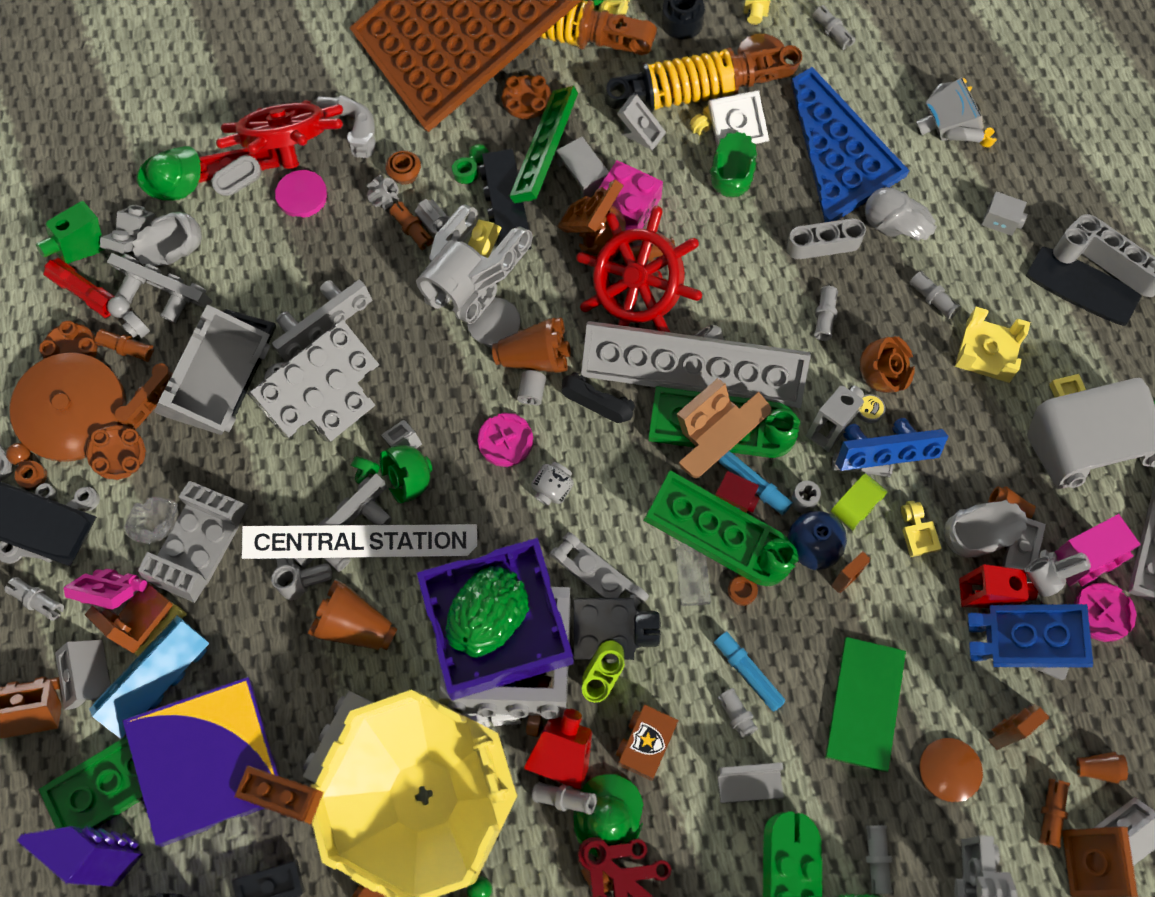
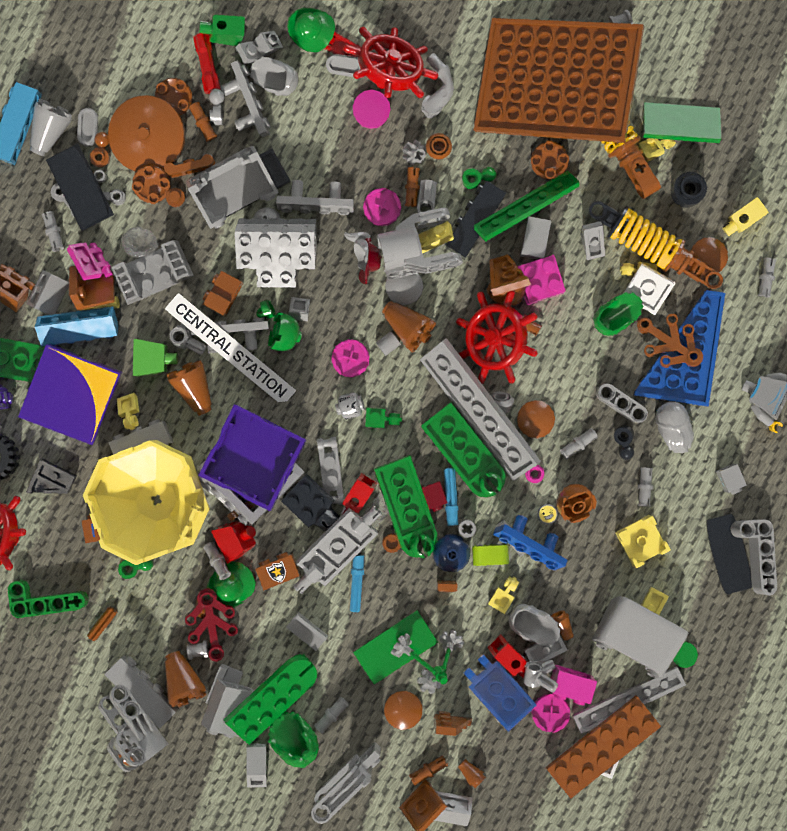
camera: 40 degrees right, 20 degrees up
(156, 443) = (175, 197): none -> dark orange plate
(274, 634) = (151, 358): none -> bright green torso
(279, 794) = (88, 446): dark orange tile -> none
(294, 718) = (127, 407): none -> light yellow plate
(299, 493) = (223, 293): none -> dark orange brick
(397, 269) = (382, 207): none -> dark pink tile
(422, 318) = (367, 254): none -> hair
(486, 611) = (252, 451): green hair -> none
(593, 474) = (376, 418): none -> green plate
(603, 671) = (287, 521): lime beam -> none
(610, 407) = (409, 365): black piece -> none
(649, 554) = (361, 490): none -> red torso
(688, 647) = (336, 548): none -> light grey plate
(717, 425) = (458, 453): medium nougat plate -> none
(740, 718) = (331, 597): light grey pin -> none
(759, 326) = (536, 419): none -> dark orange dish
(811, 145) = (672, 343): none -> dark orange plant
(821, 376) = (535, 479): none -> dark pink plate
(839, 409) = (520, 506): light grey torso -> none
(879, 280) = (626, 451): none -> black plate
(941, 702) = (436, 675): none -> light grey plant

